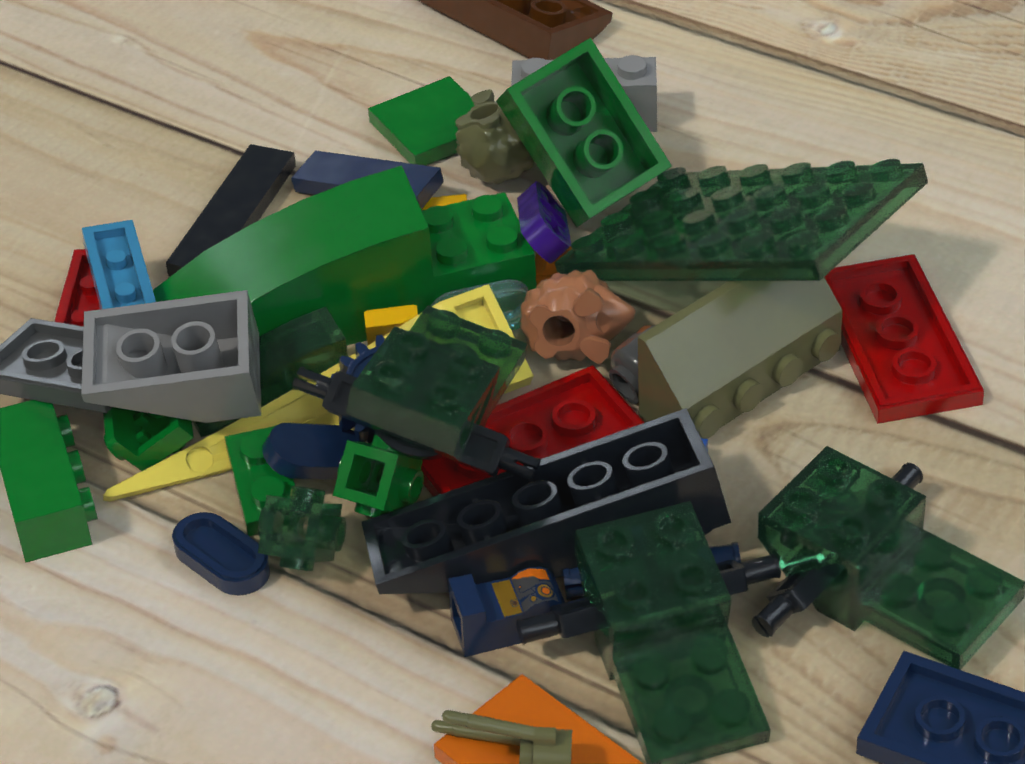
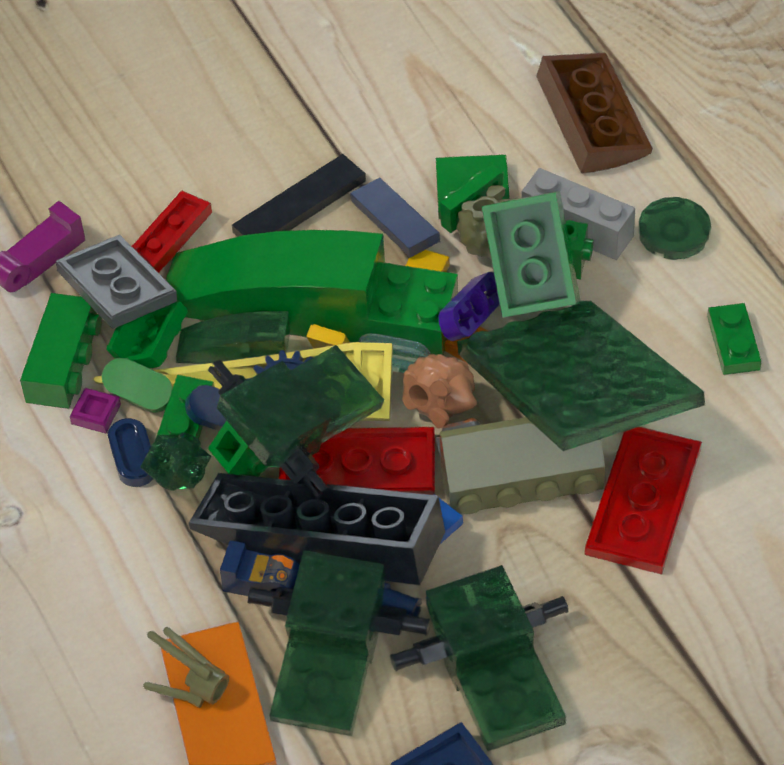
camera: 30 degrees right, 10 degrees up
(117, 265) = (186, 231): dark azure plate -> none
(133, 528) = (95, 410): none -> magenta tile
(175, 358) = (168, 311): light grey slope -> none
(175, 473) = (137, 384): none -> green tile
(440, 131) = (471, 191): none -> green plate
(699, 75) = (674, 227): none -> clear green tile
(847, 139) = (734, 338): none -> green plate

